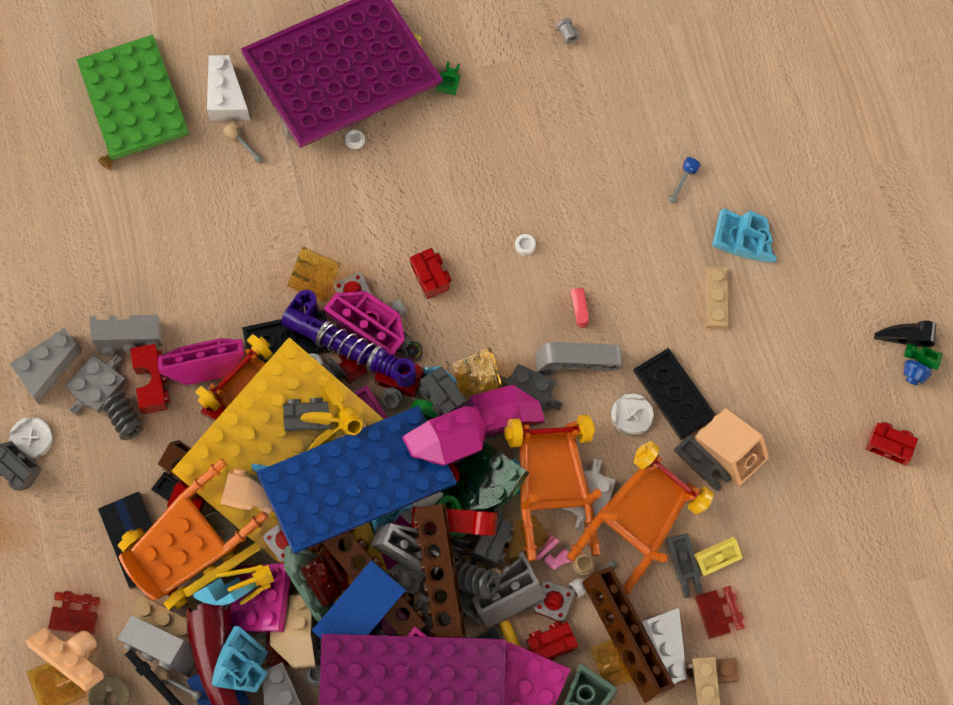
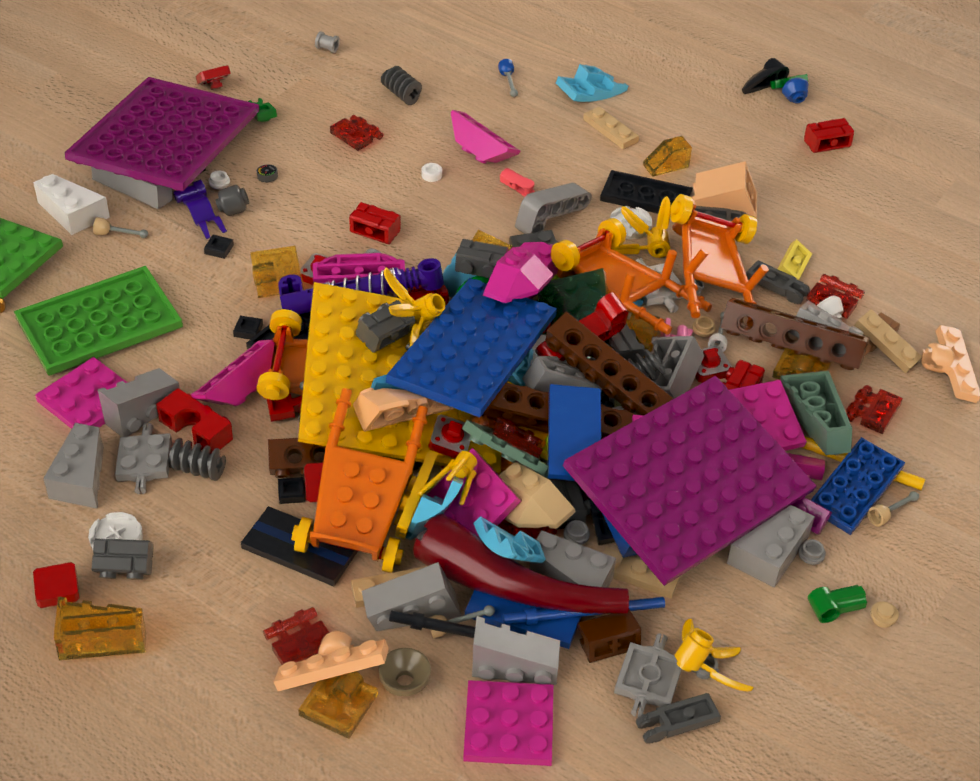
camera: 40 degrees left, 25 degrees down
(101, 294) = (76, 395): none -> dark pink plate
(160, 228) = (97, 320): none -> bright green plate
(257, 311) = (247, 327): none -> black tile
(301, 211) = (218, 246): none -> black tile
(315, 164) = (199, 206): none -> dark purple flag
(344, 171) = (232, 200): none -> dark grey head
(398, 155) = (267, 173): none -> tile
(440, 14) = (213, 76): none -> red piece
(496, 160) = (356, 132): none -> clear red plate
(582, 129) = (402, 84): none -> dark grey piece
(590, 242) = (480, 140): none -> dark pink wedge
(627, 453) = (657, 237): none -> yellow plant
(693, 626) = (833, 306): none -> white cone
(726, 369) = (669, 156): none -> clear yellow slope

